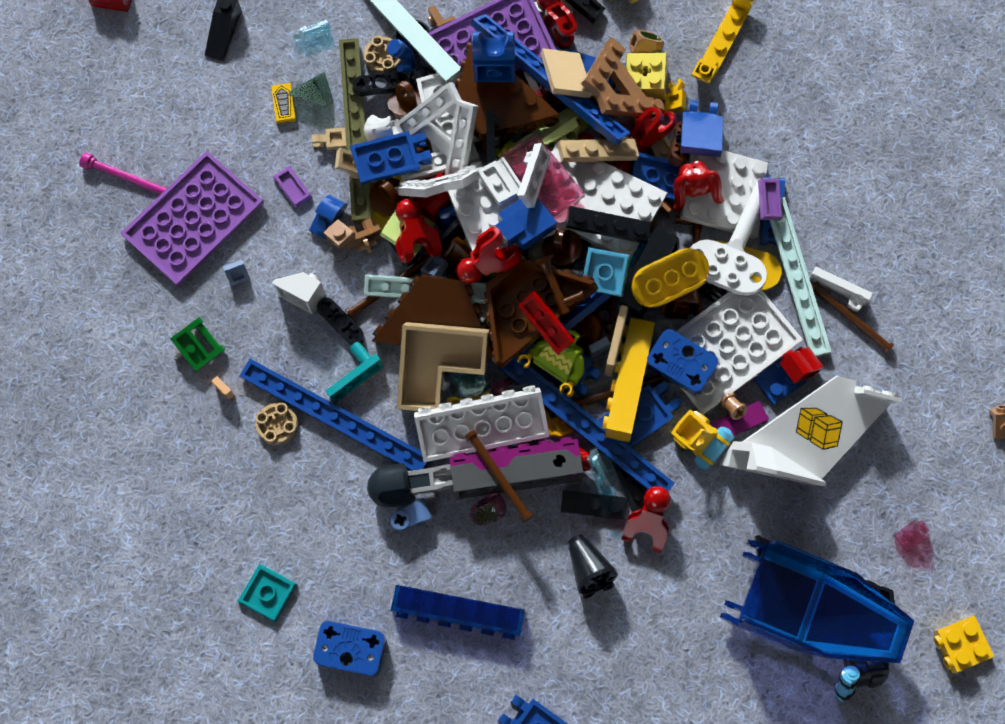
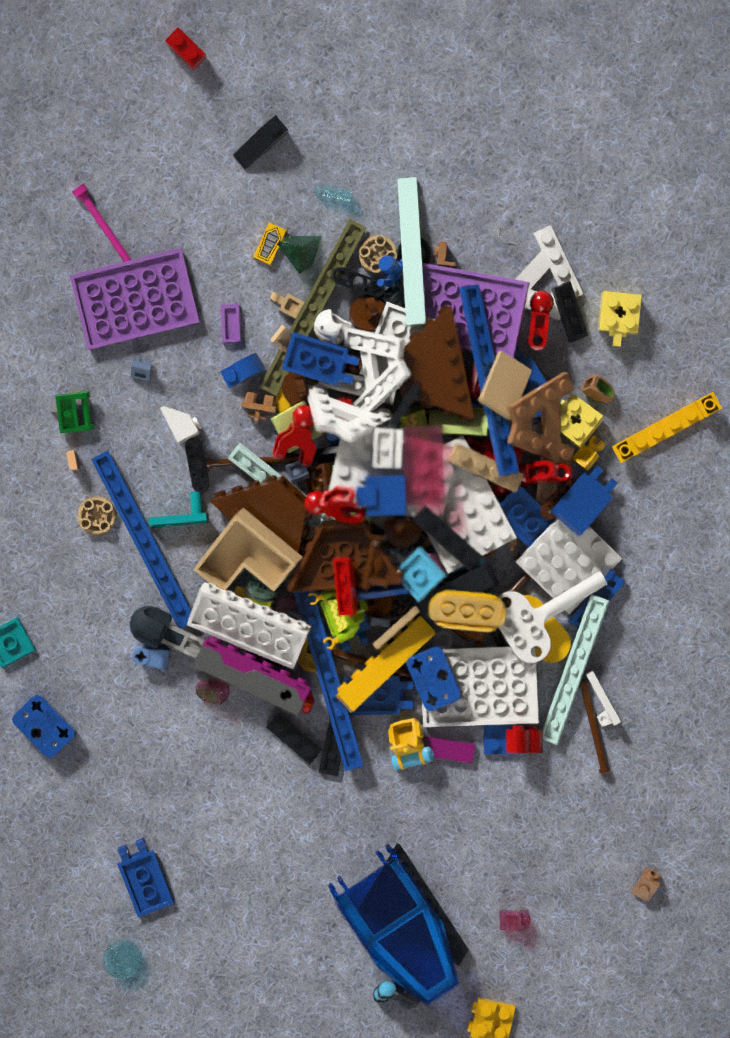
camera: 30 degrees right, 15 degrees up
(339, 234) = (239, 395): medium nougat bracket -> none
(457, 611) = (140, 751): clear blue brick -> none
(493, 57) = (446, 346): blue brick -> none
(525, 514) = (232, 677): reddish brown bar -> none
(537, 164) = (423, 457): white hinge -> none
(590, 567) = (258, 784): black cone -> none
(596, 460) = (317, 716): clear light blue tile -> none
(650, 518) = (326, 780): piece -> none
(696, 181) = (544, 545): red hair -> none
(734, 407) = (450, 736): medium nougat bush -> none
(770, 199) = (594, 596): medium lavender tile -> none
(812, 433) = (488, 800): white piece -> none

